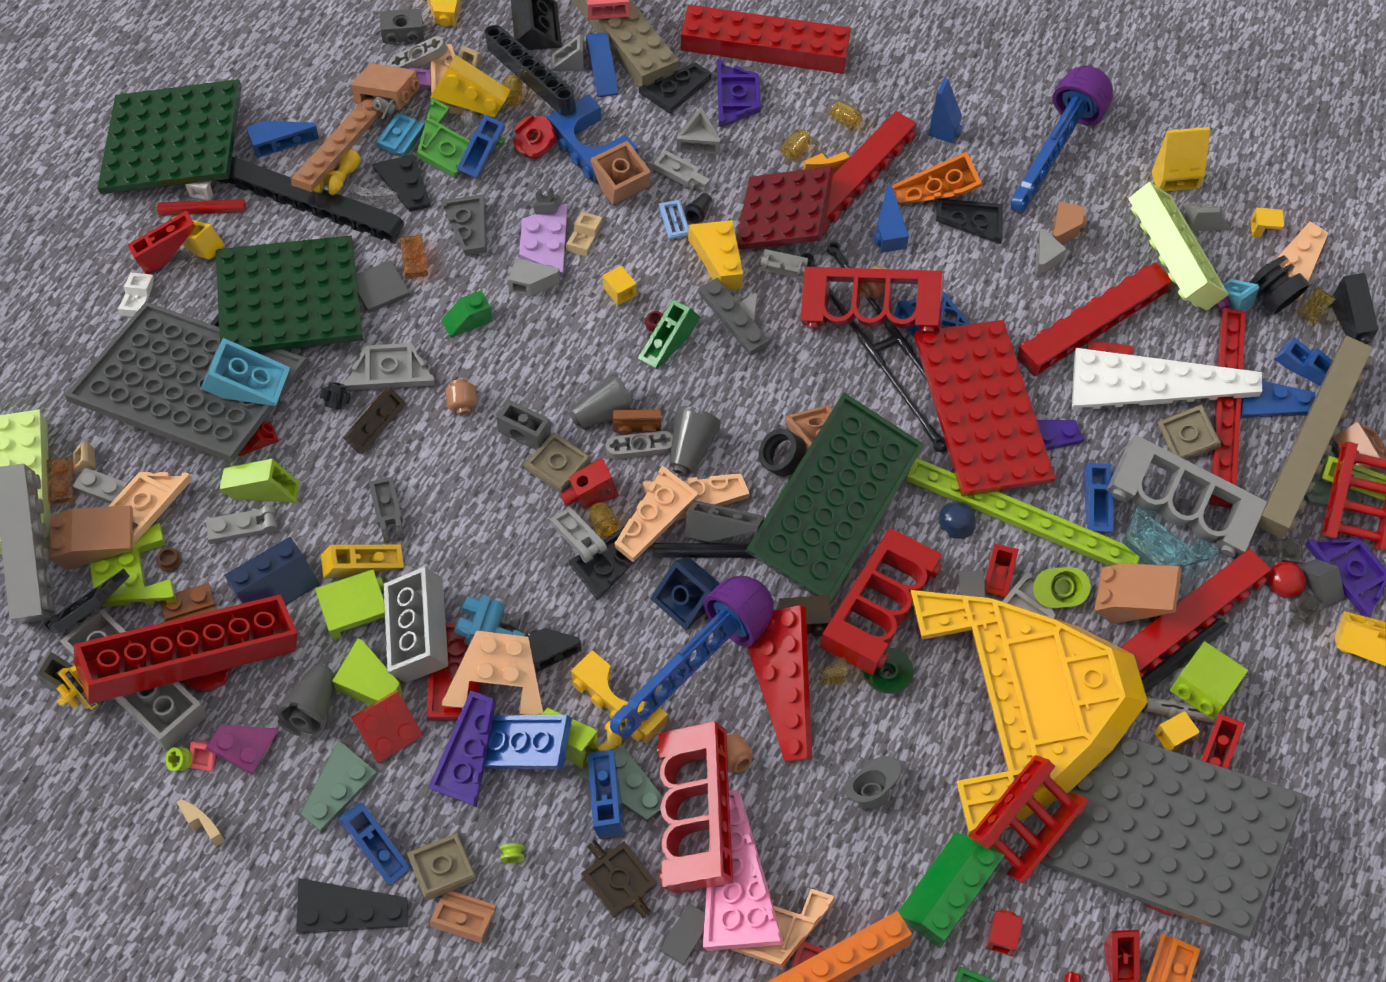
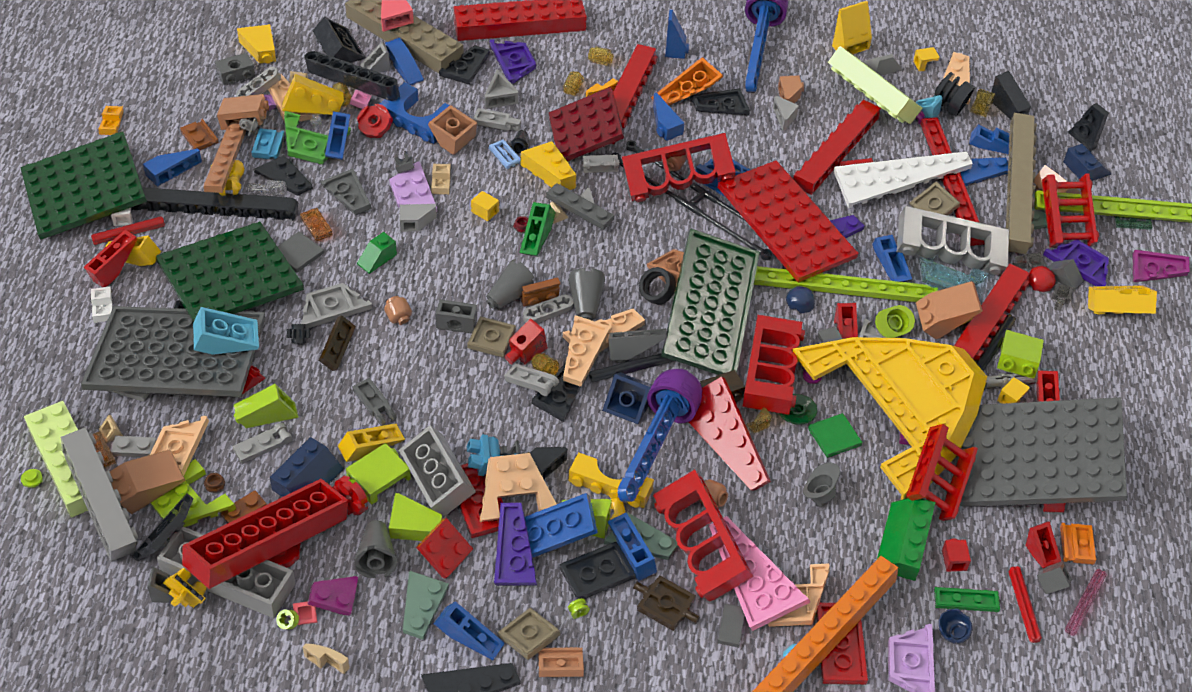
camera: 20 degrees left, 10 degrees down
(239, 57) = (110, 120): none -> light orange slope
(308, 634) = (354, 494): none -> red plate
(328, 103) = (199, 135): none -> dark orange plate
(530, 103) = (360, 99): none -> bright pink plate
(553, 811) = (597, 571): none -> black plate
(707, 317) = (560, 214): none -> tan slope
(922, 719) = (835, 435): none -> green tile

